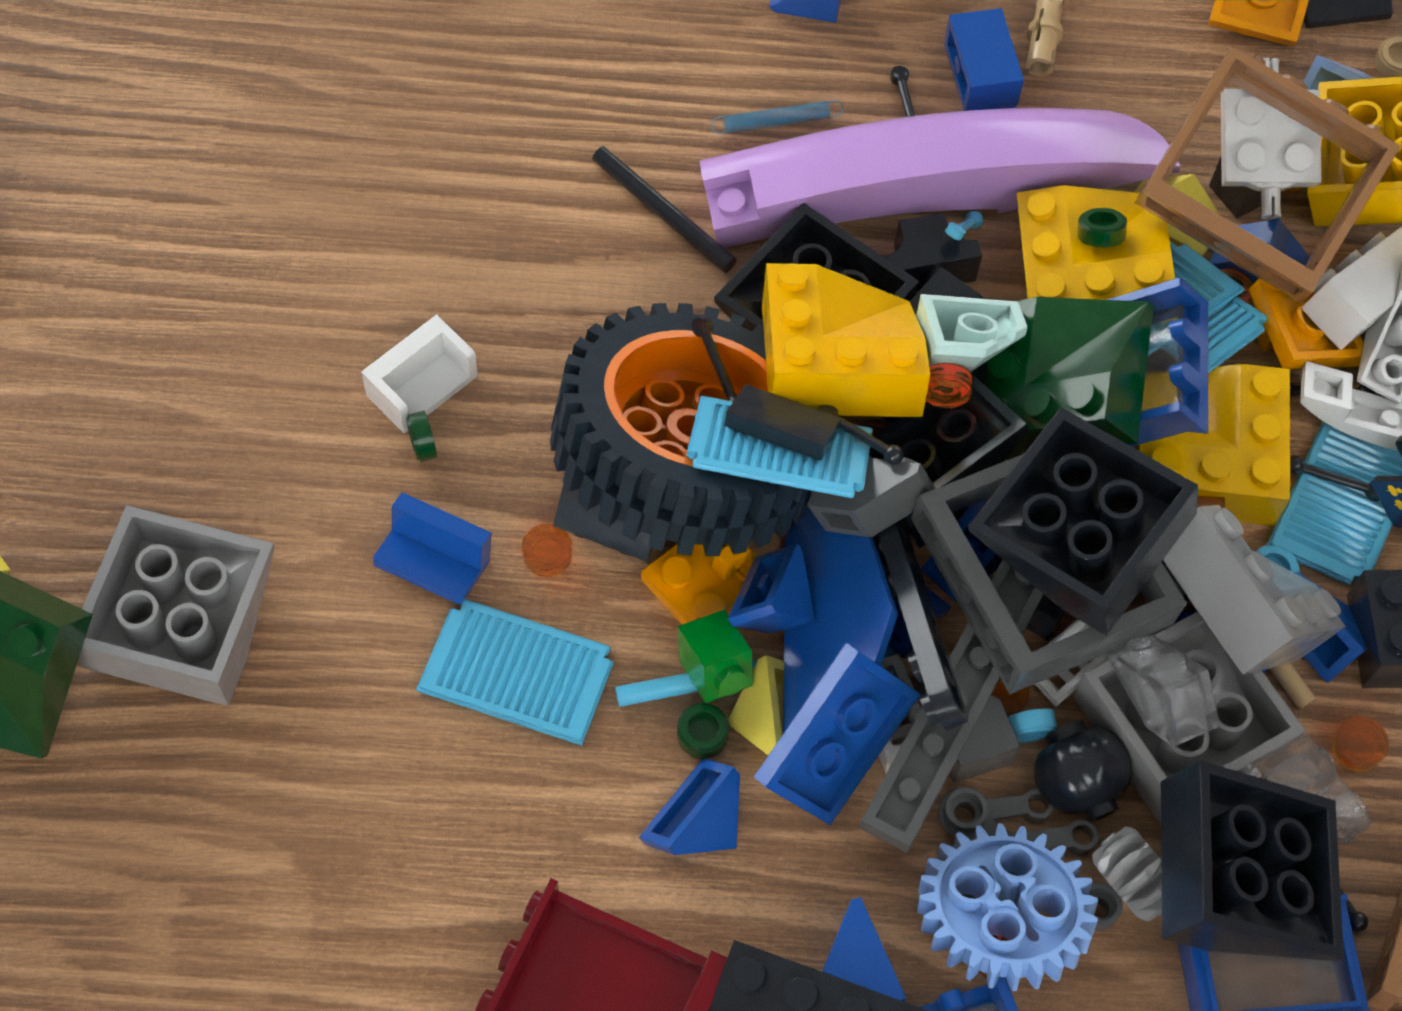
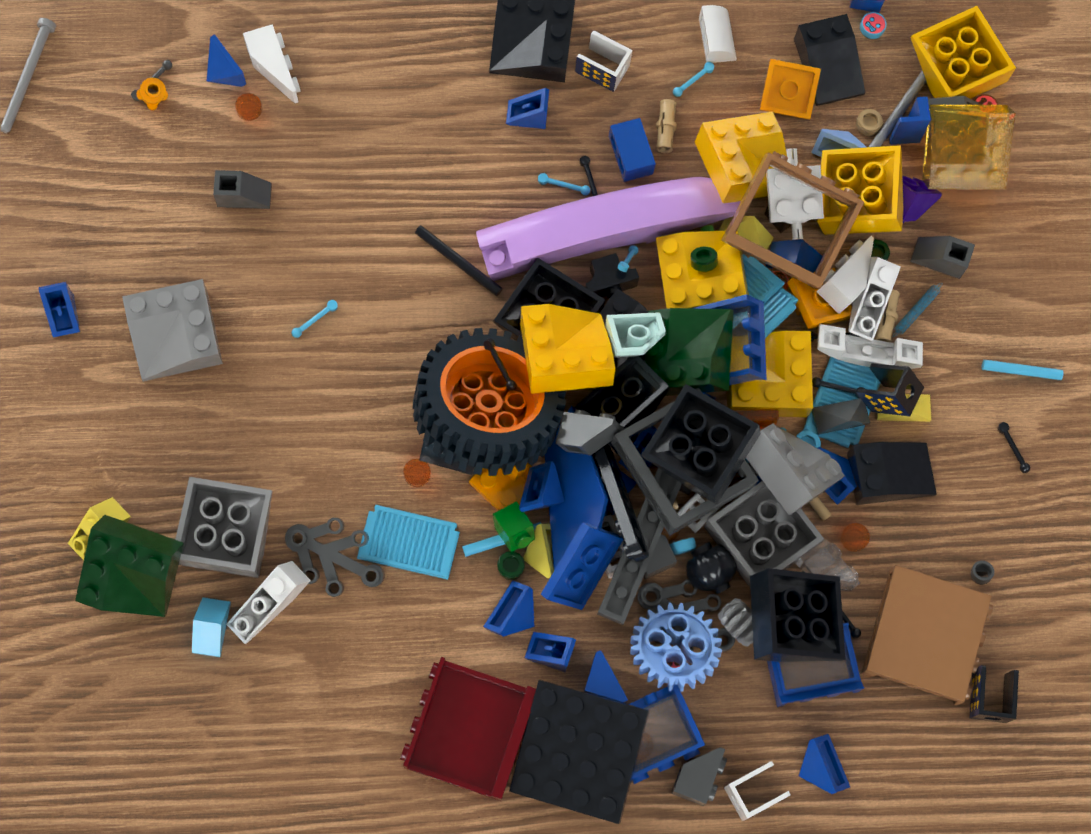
camera: 10 degrees left, 10 degrees up
(121, 785) = (210, 627): none -> medium azure slope
(144, 269) = (172, 330): none -> light grey slope
(239, 746) = (268, 600): none -> white slope
(299, 61) = (241, 190): none -> dark grey slope
(366, 674) = (330, 553): none -> dark grey plant
(420, 372) = (335, 377): white panel -> none
(421, 436) = (341, 415): dark green tile -> none
(431, 261) = (331, 306): none -> medium azure hinge
(434, 549) = (356, 480): blue panel -> none
(741, 455) = (538, 415): medium azure window -> none
(765, 893) = (550, 650): none -> blue slope
(767, 120) = (523, 192): medium azure piece -> none
(783, 422) = (538, 401): black tile -> none
(827, 94) = (543, 179): none -> medium azure hinge
(892, 454) = (562, 392): black hinge -> none
(949, 385) = (625, 366): clear orange tile -> none
(1160, 70) = (735, 149): none -> yellow slope
(1166, 689) = (750, 526): clear slope -> none
(1337, 526) = (840, 416): none -> dark grey slope

